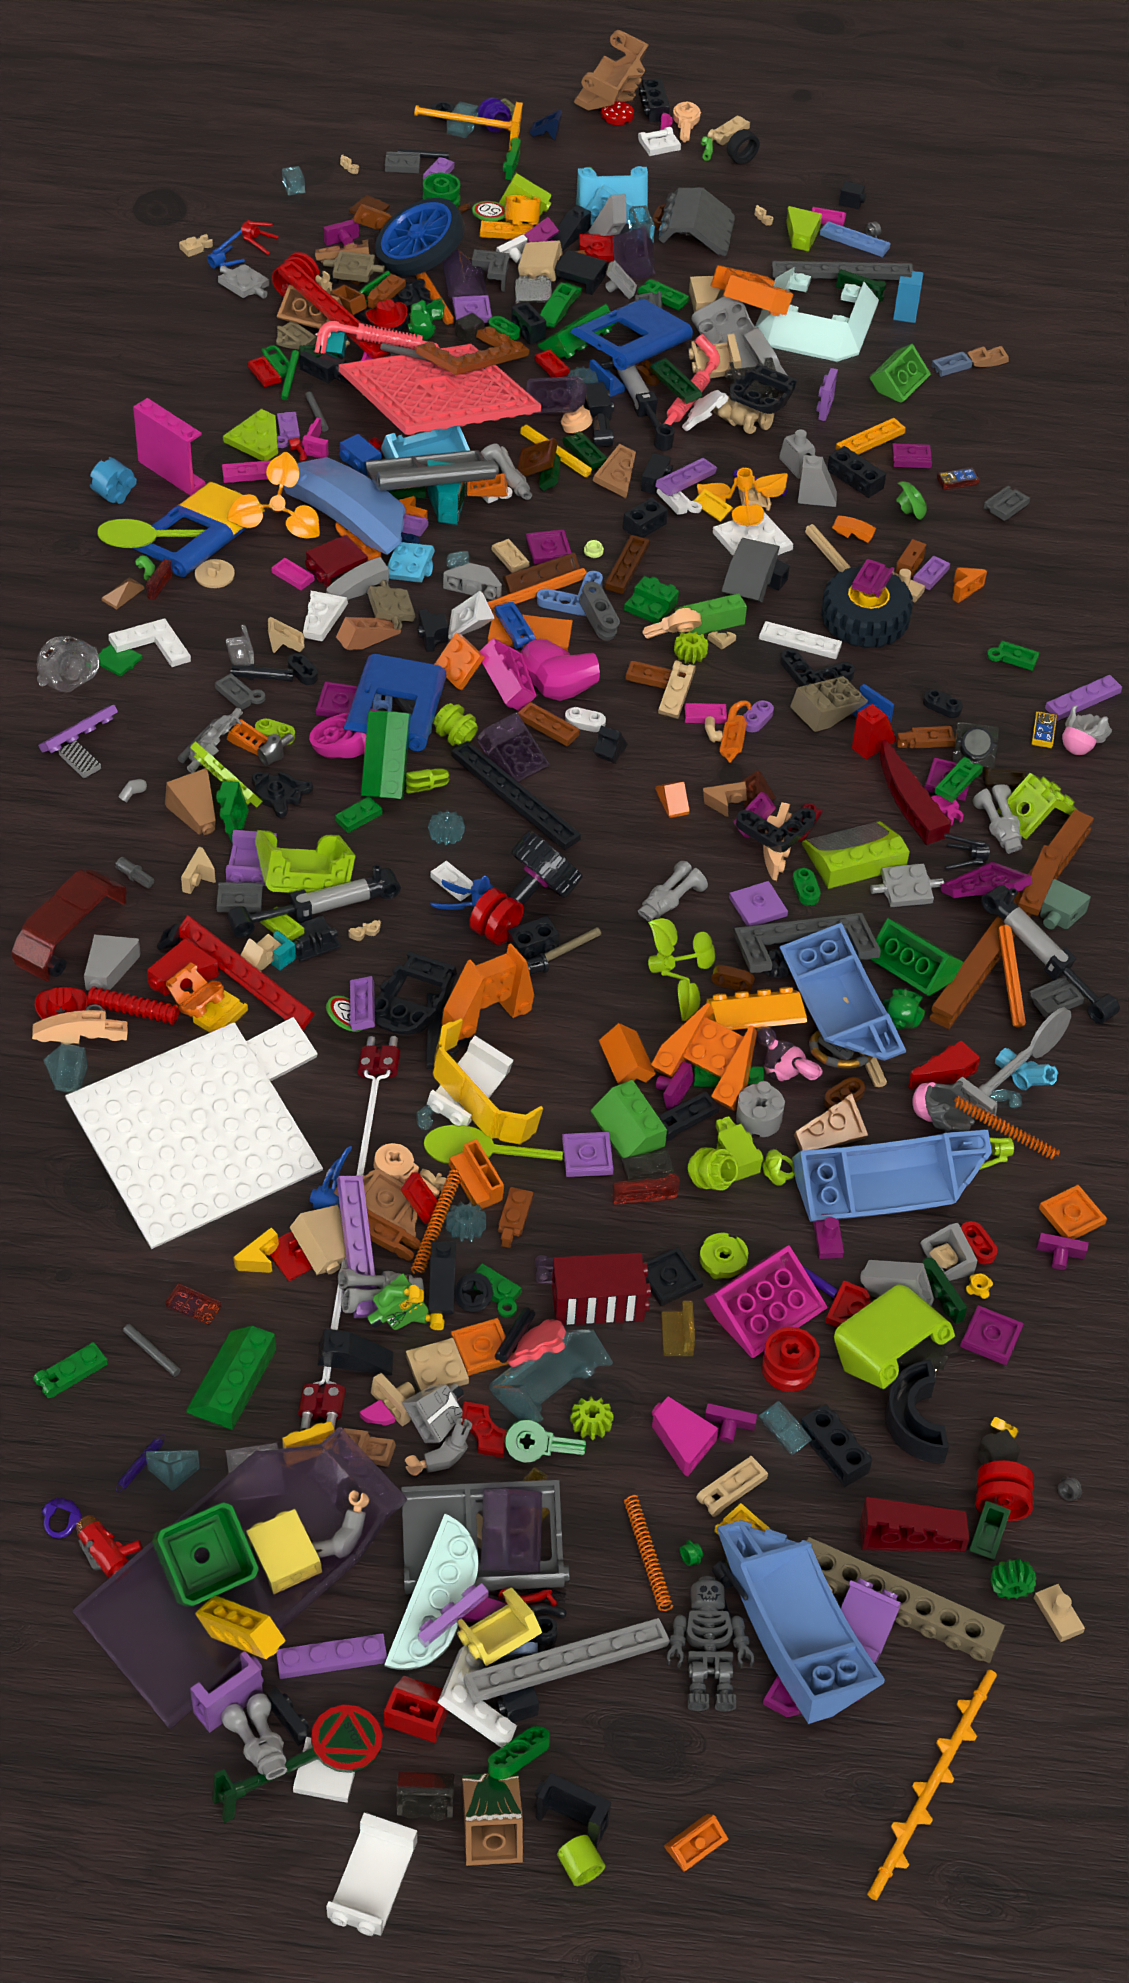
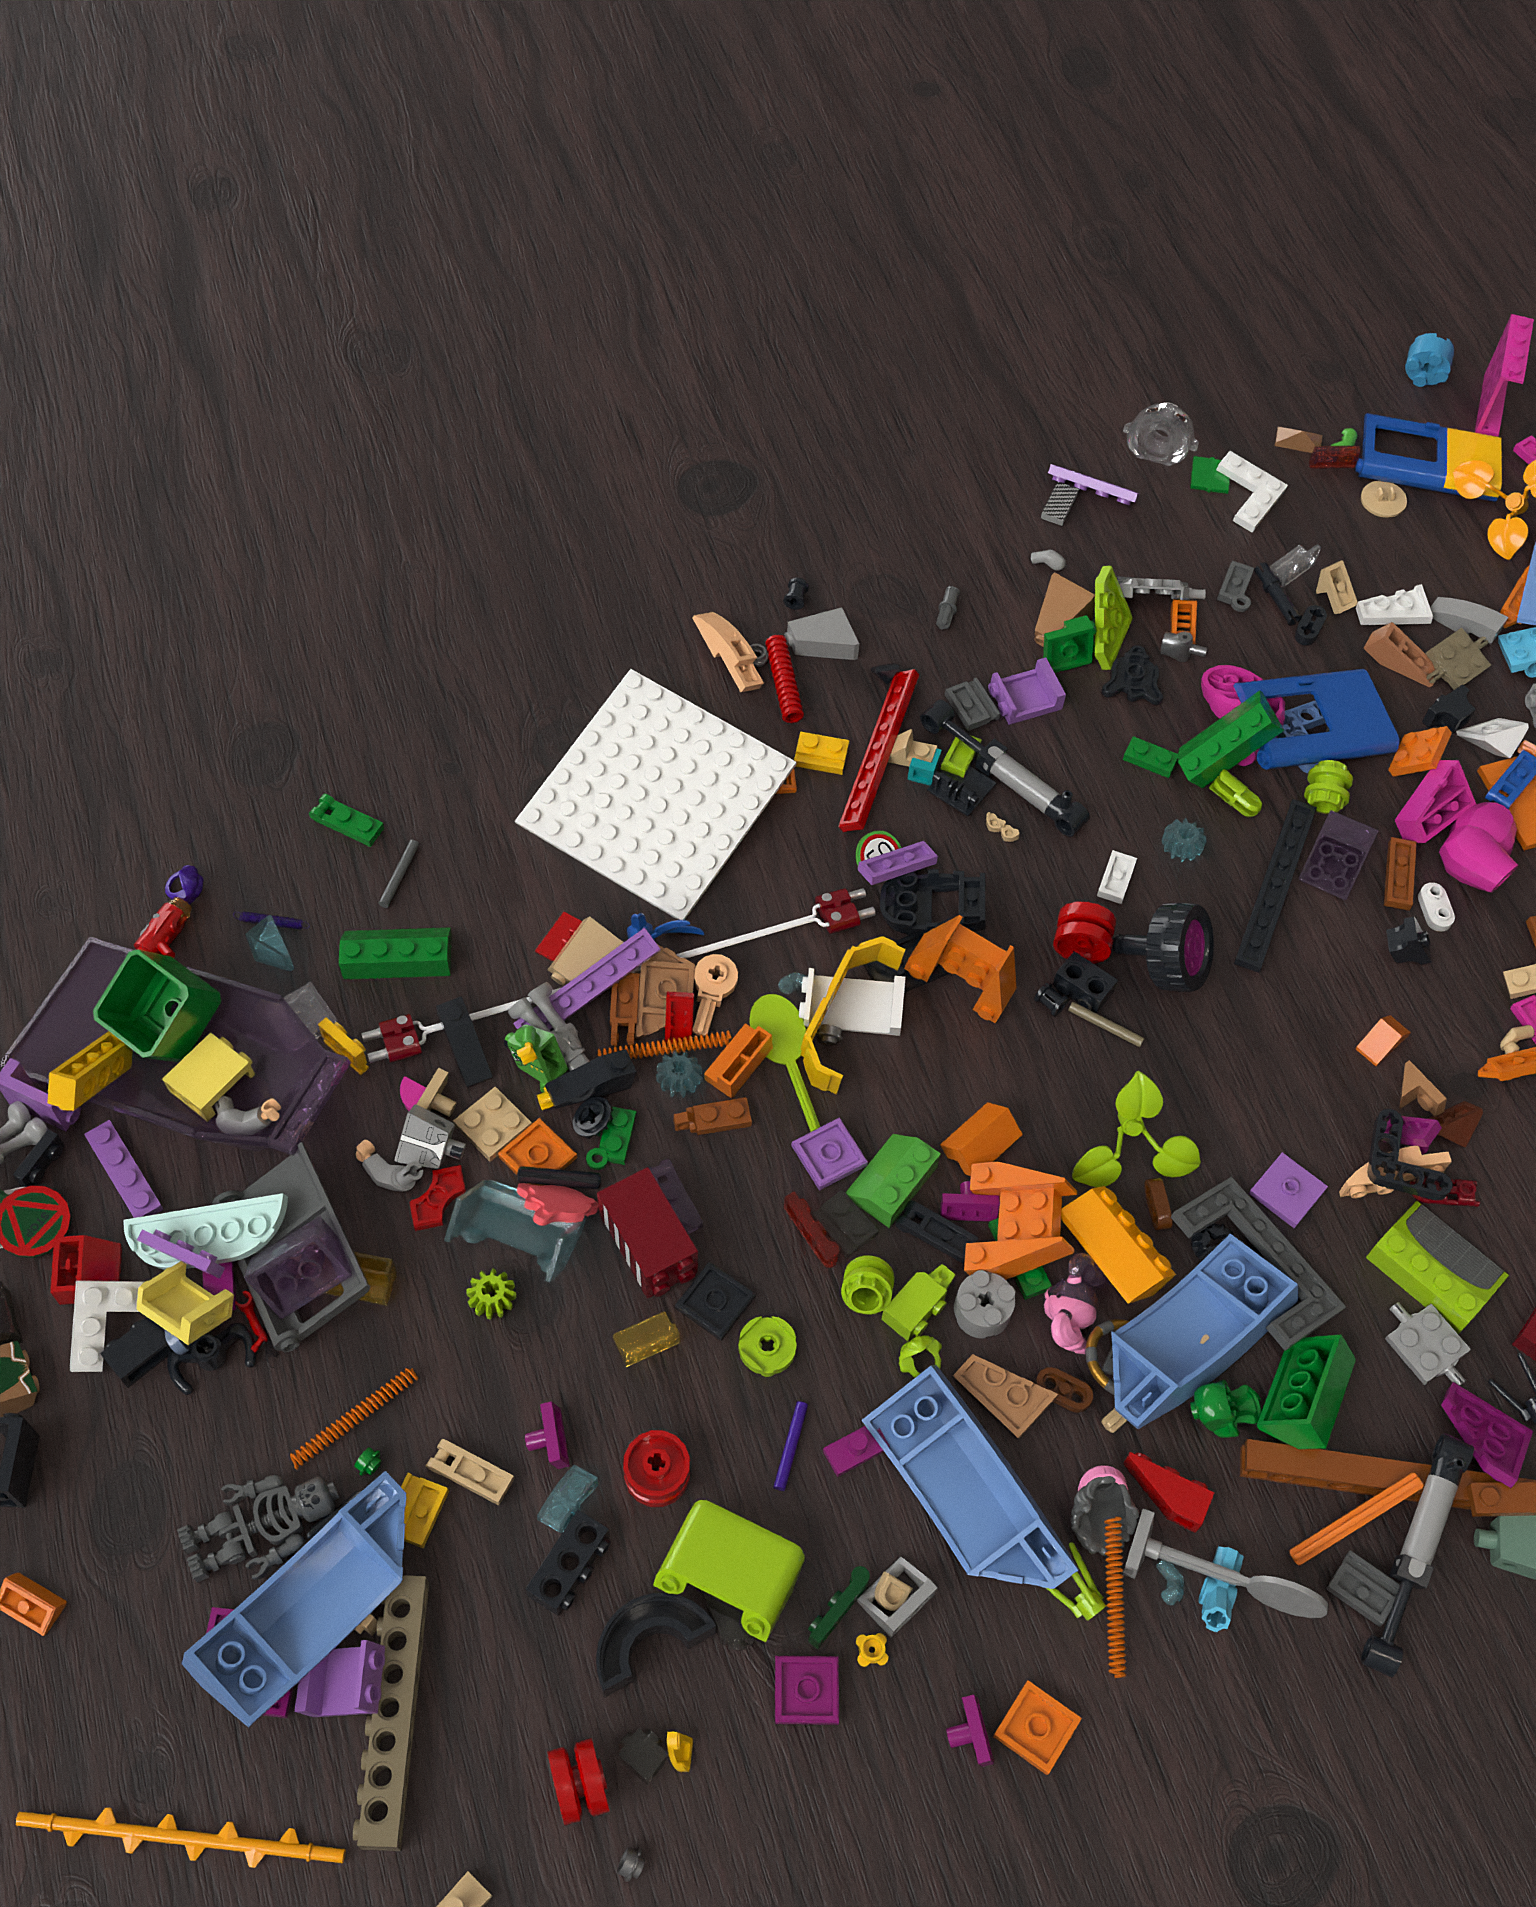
camera: 65 degrees right, 10 degrees up
(59, 916) = (851, 569): clear red windscreen -> none
(60, 1001) = (754, 621): red hat -> none
(67, 1067) = (678, 665): clear light blue slope -> none
(135, 533) = (1375, 409): lime piece -> none
(176, 960) = (850, 695): red slope -> none
(193, 1304) = (467, 883): clear red tile -> none
(197, 869) = (985, 653): tan slope -> none
(203, 992) = (817, 721): orange piece -> none
(253, 1256) = (544, 905): yellow slope -> none
(270, 727) = (1208, 635): lime plate -> none
(282, 1049) = (799, 819): white plate -> none
(292, 574) = (1435, 561): dark pink tile -> none
(305, 869) = (1035, 732): lime windscreen -> none
(334, 559) = (1479, 582): dark red panel -> none
(335, 699) = (1286, 665): magenta plate -> none
(377, 1449) = (368, 1100): medium nougat slope -> none
(437, 1181) = (717, 1022): tan piece -> none
(479, 888) = (1115, 903): blue plant -> none
(505, 1763) = (58, 1371): green beam -> none
(542, 1442) = (429, 1248): piece -> none
(565, 1660) = (178, 1386): light grey plate -> none
(664, 899) = (1225, 1086): light grey piece -> none
(683, 1433) = (511, 1394): dark pink slope -> none
(766, 1299) = (726, 1414): dark pink slope -> none
(806, 886) = (1351, 1230): green plate -> none
(847, 1303) = (766, 1506): red plate -> none
(883, 1275) = (820, 1549): light grey slope -> none
(912, 1527) = (491, 1692): dark red wedge -> none
(980, 1243) = (931, 1625): red plate -> none
(990, 1530) = (522, 1784): dark green slope -> none
(1013, 1579) = (467, 1835): green gear -> none

